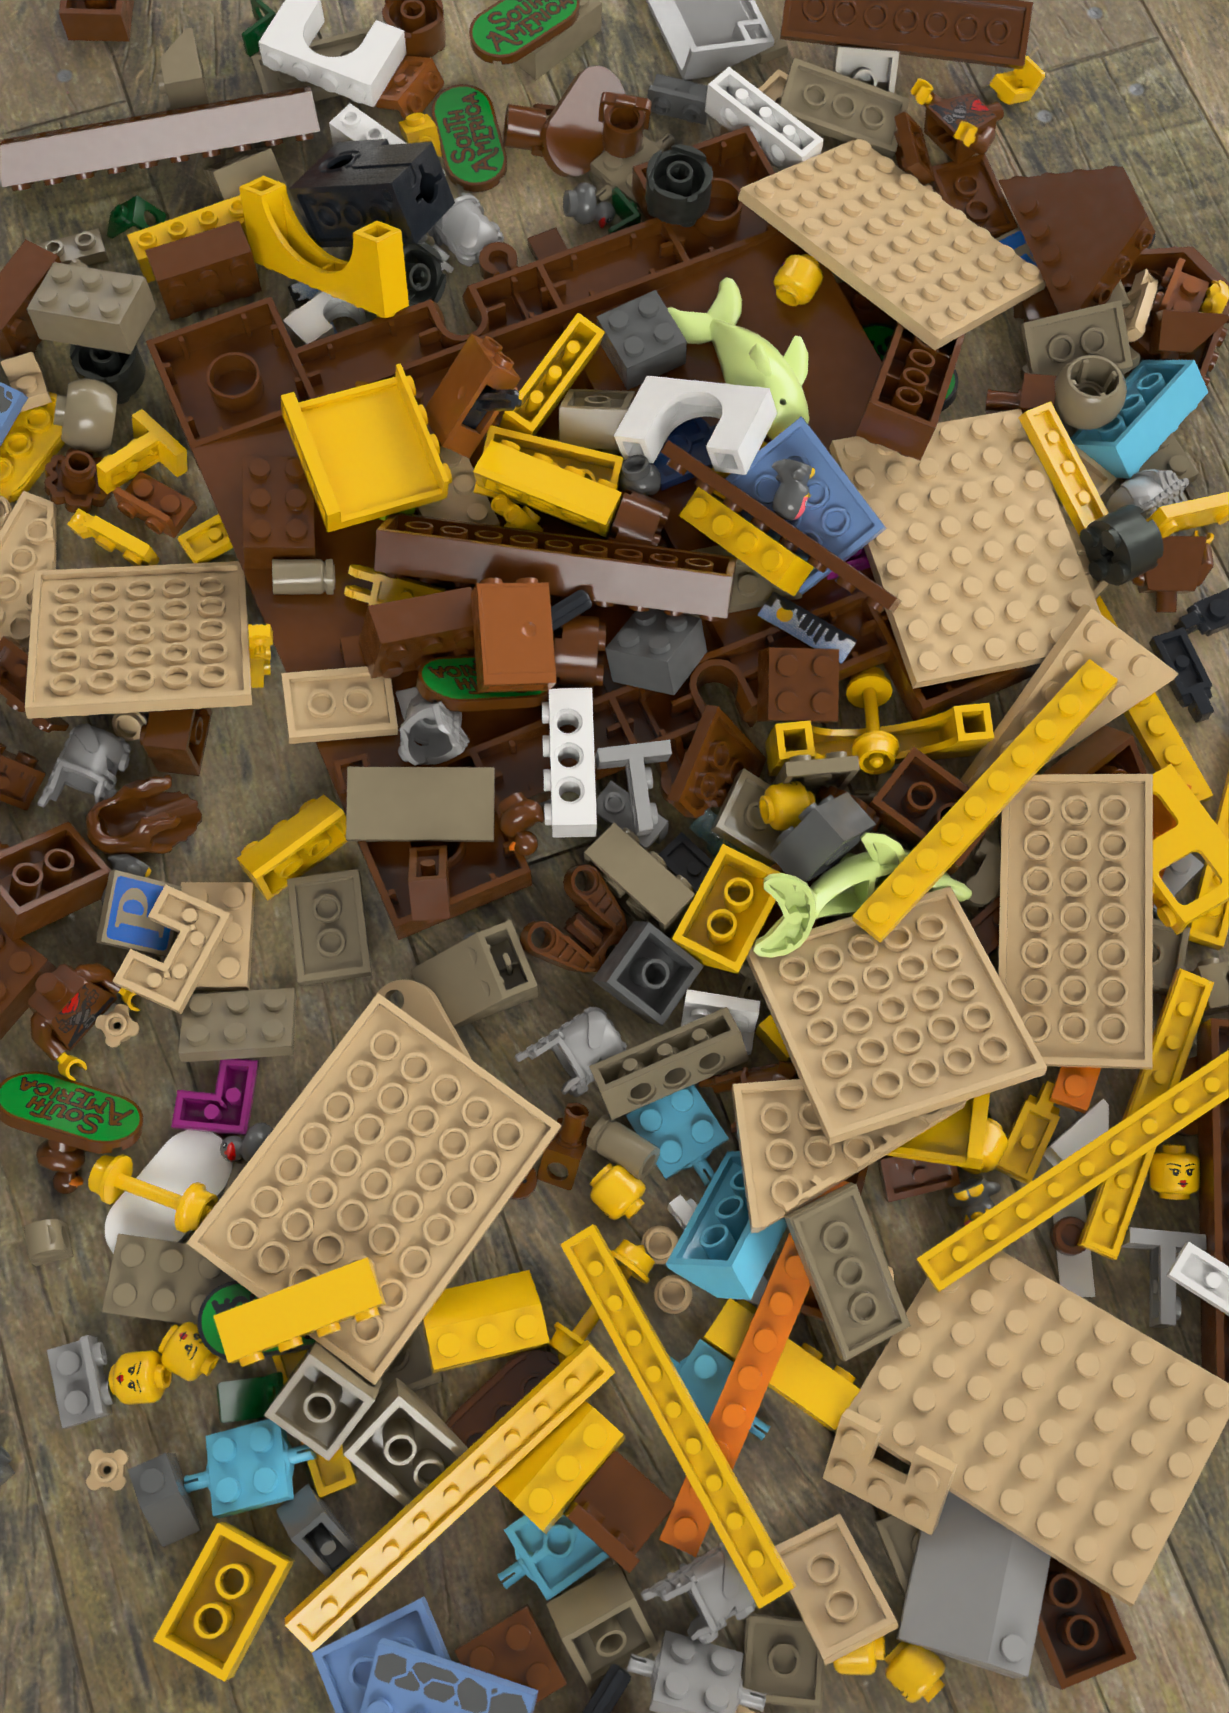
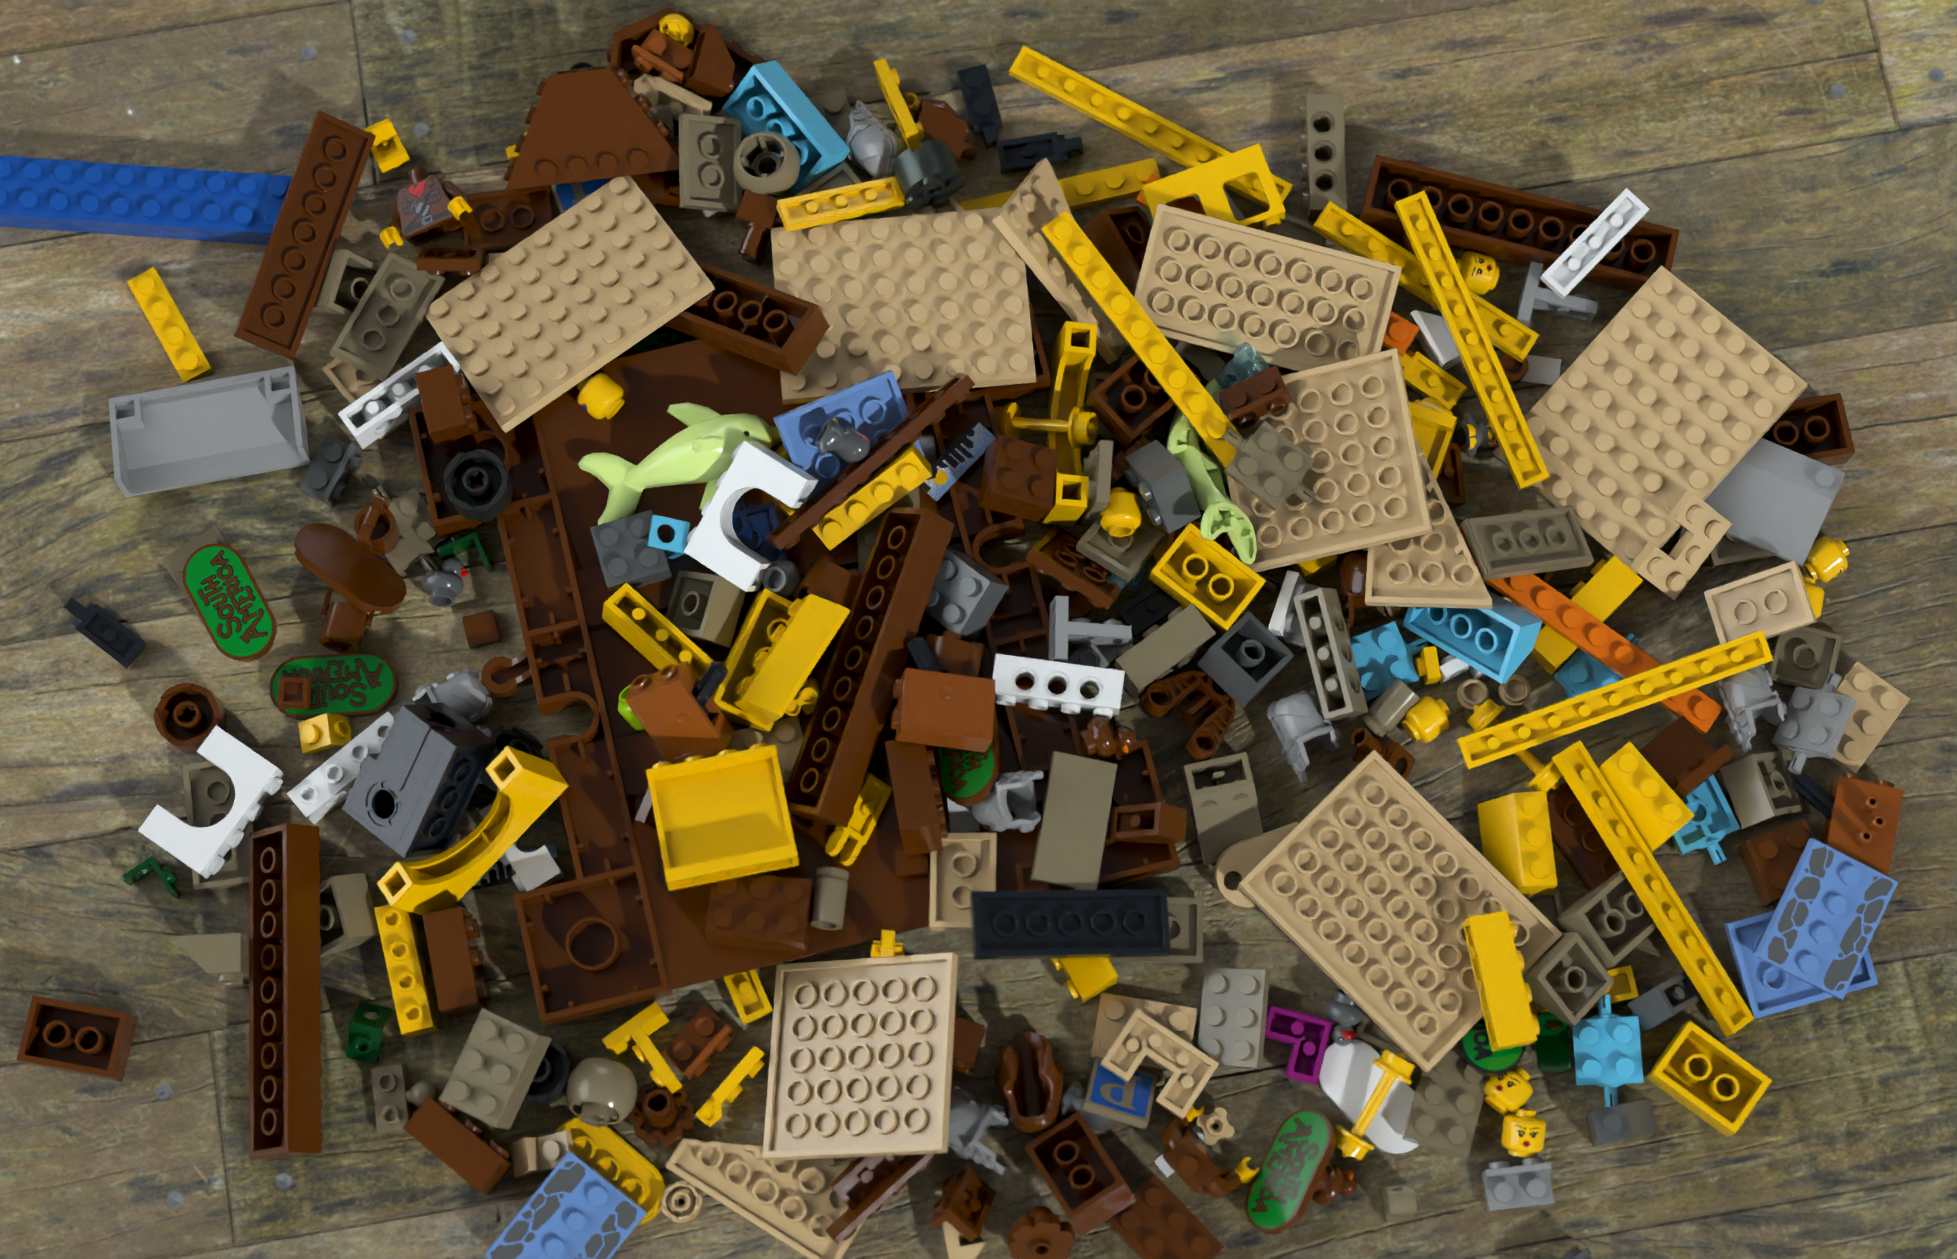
camera: 75 degrees left, 5 degrees up
(116, 1477) = (1584, 1174): tan plate -> none
(302, 814) = (1069, 924): none -> black plate
(412, 86) = (264, 732): dark orange bracket -> none
(454, 102) = (294, 693): none -> reddish brown tile
(669, 370) = (678, 536): none -> medium azure bracket
(683, 1184) = (1428, 666): none -> yellow plate
(750, 140) = (446, 407): none -> reddish brown brick
(870, 948) = (1269, 466): none -> dark tan plate
(952, 927) = (1256, 397): none -> reddish brown bracket
(986, 910) = (1242, 365): none -> clear light blue plate

